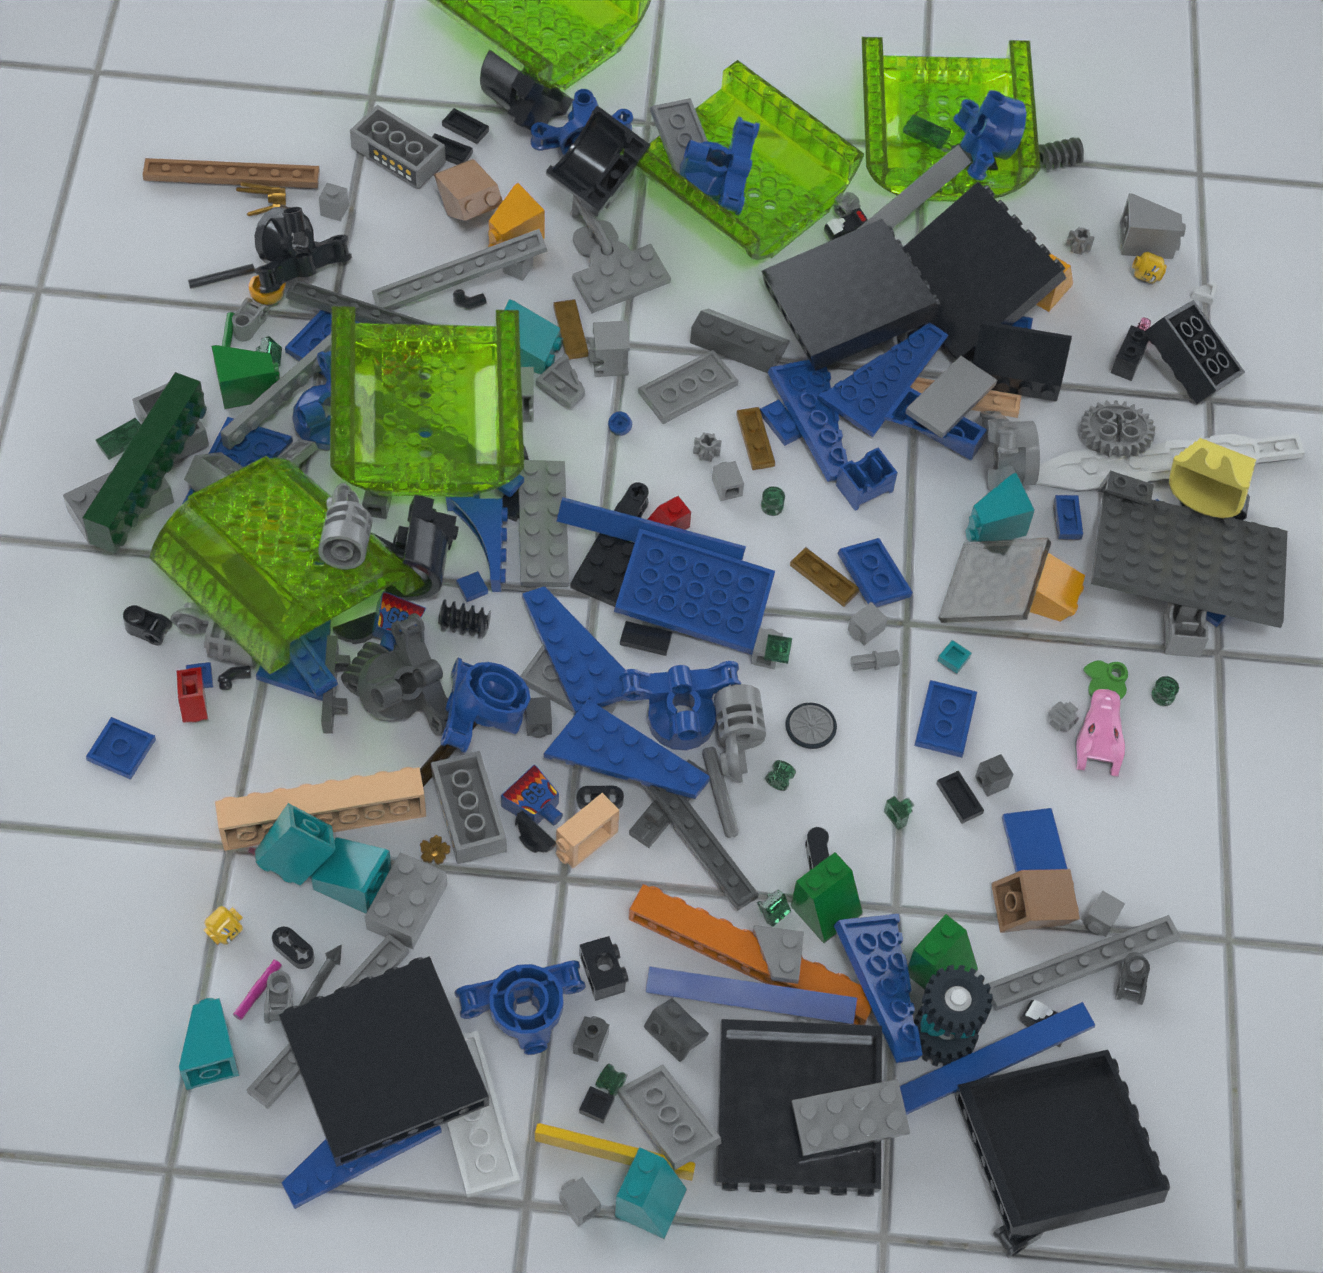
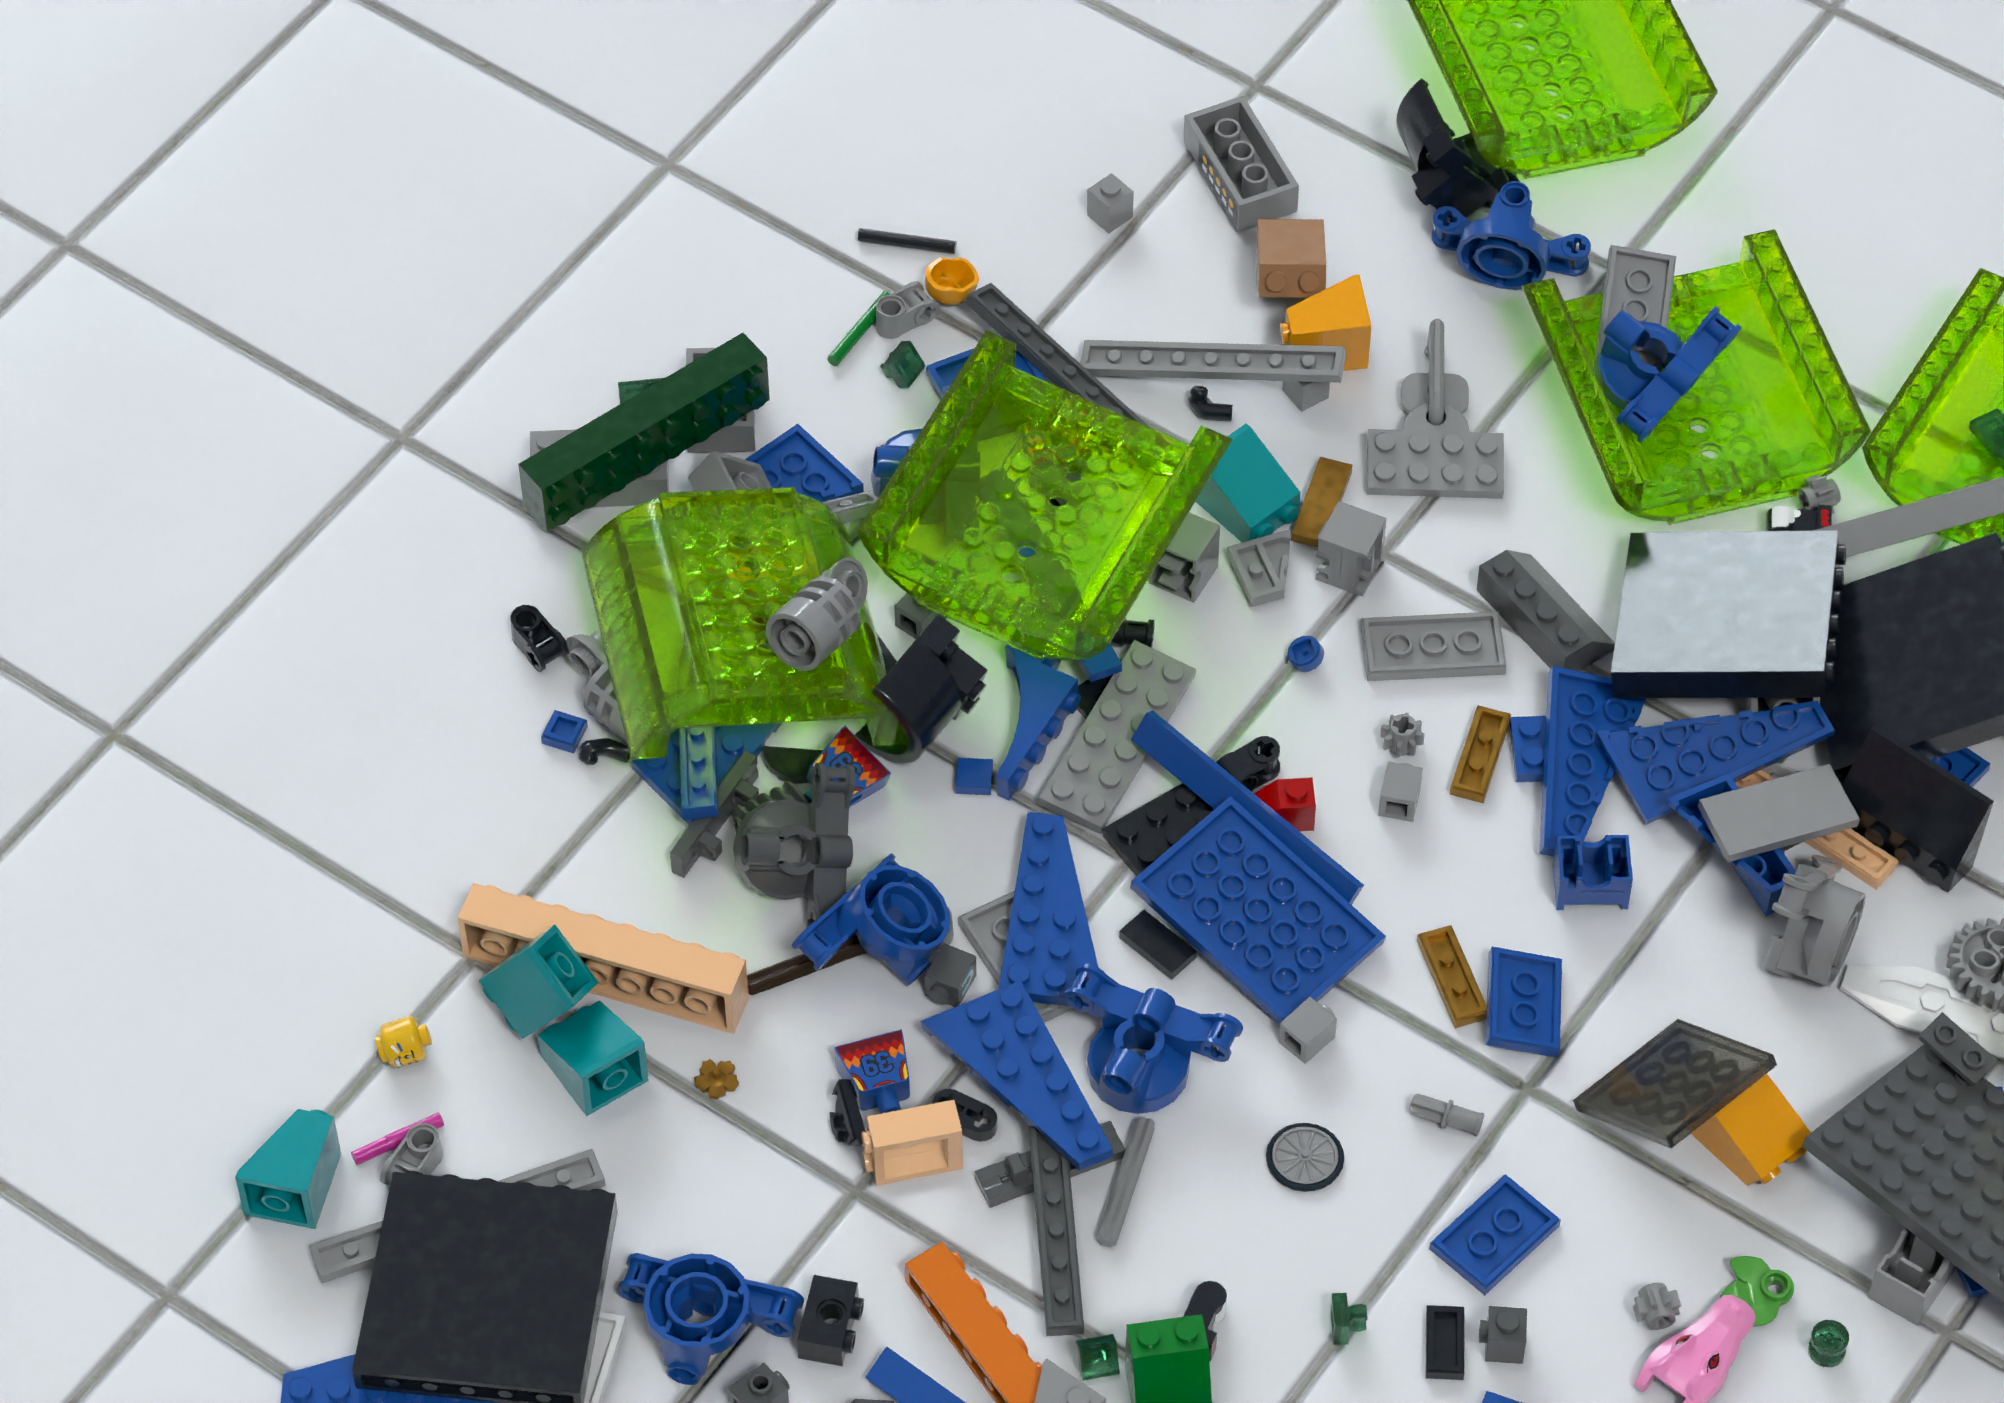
camera: 35 degrees right, 5 degrees down
(120, 748) = (416, 775): blue tile -> none
(191, 695) = (536, 748): red slope -> none
(231, 173) = (1003, 112): medium nougat plate -> none
(243, 374) = (847, 381): green slope -> none
(274, 396) = (857, 425): light grey plate -> none
(275, 195) = (1040, 164): pearl gold plant -> none
(289, 952) = (477, 1108): black beam -> none
(297, 258) = (1014, 261): black piece -> none
(333, 957) = (510, 1145): dark grey piece -> none
(406, 900) = (639, 1119): light grey brick -> none
(454, 151) = (1316, 198): black tile -> none
(464, 619) = (933, 811): black piece -> none
(465, 126) = (1356, 173): black tile -> none
(468, 807) = (786, 1043): light grey brick -> none
(594, 163) = (1479, 294): black piece -> none
(739, 726) = (1198, 1109): light grey cylinder -> none
(775, 506) = (1441, 853): clear green wheel -> none
(778, 648) = (1310, 1031): clear green tile -> none
(780, 775) = (1217, 1197): clear green wheel -> none
(867, 624) = (1465, 1061): light grey brick -> none
(954, 656) = (1559, 1160): teal plate -> none
(1001, 513) = (1745, 999): teal slope -> none
(1068, 517) = (1851, 1052): blue plate -> none

